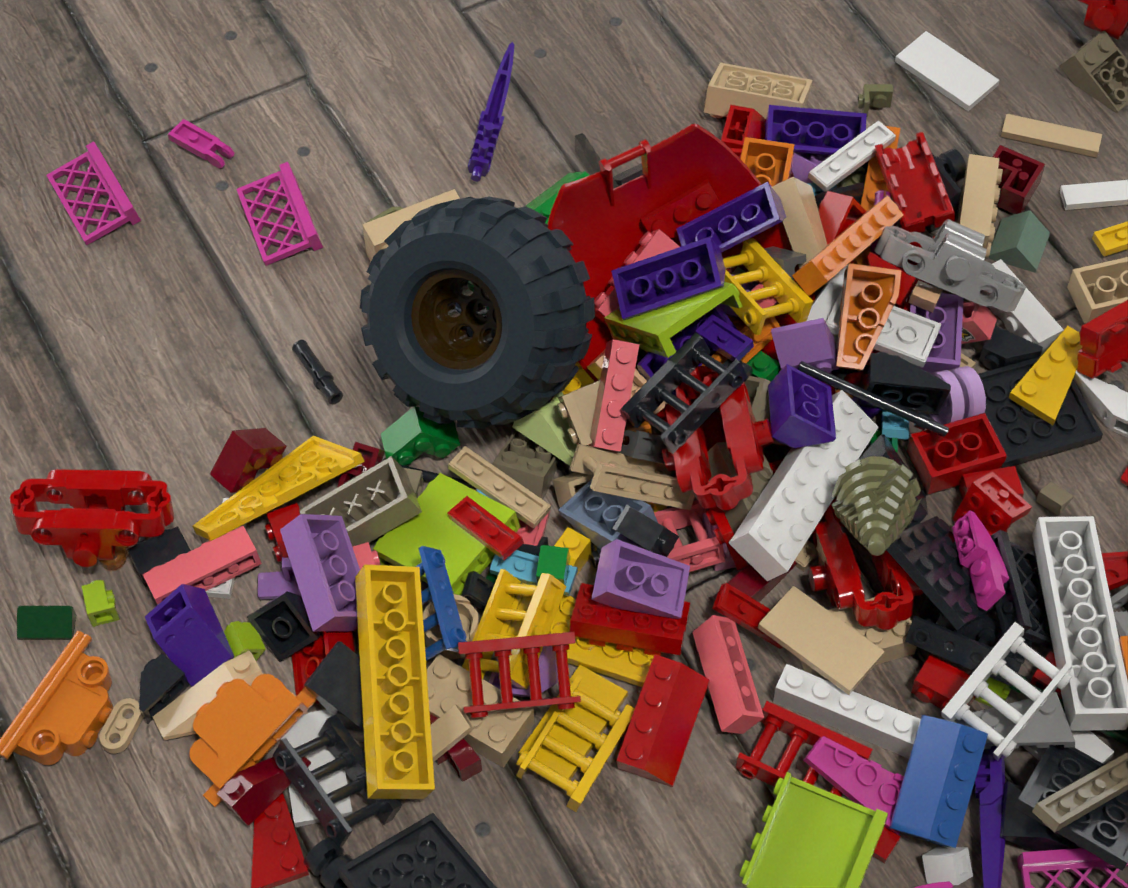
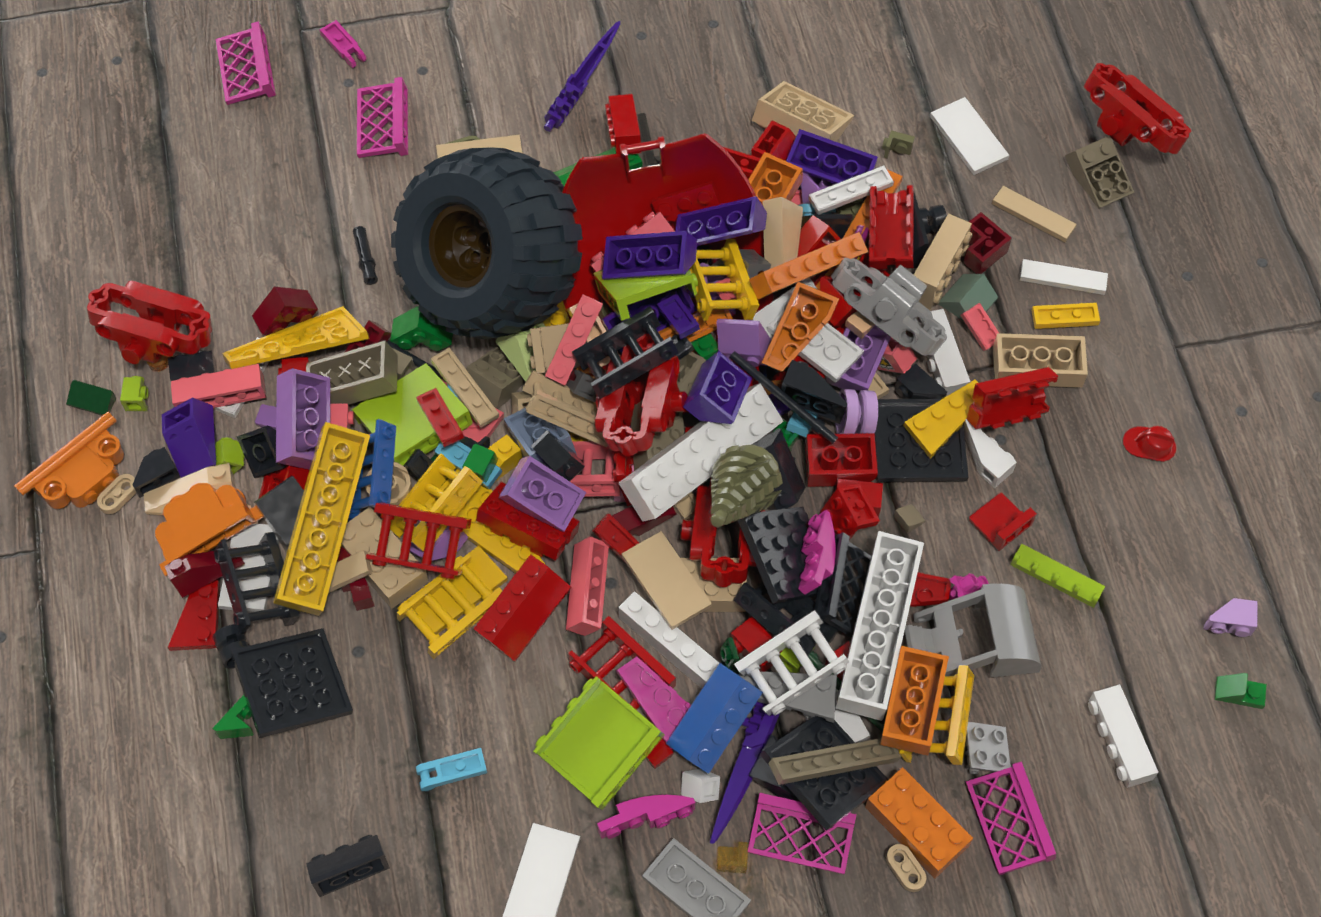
camera: 15 degrees right, 5 degrees up
(565, 149) = (622, 121): none -> red brick
(926, 703) = (729, 654): none -> dark green slope
(1047, 268) = (980, 326): none -> coral plate

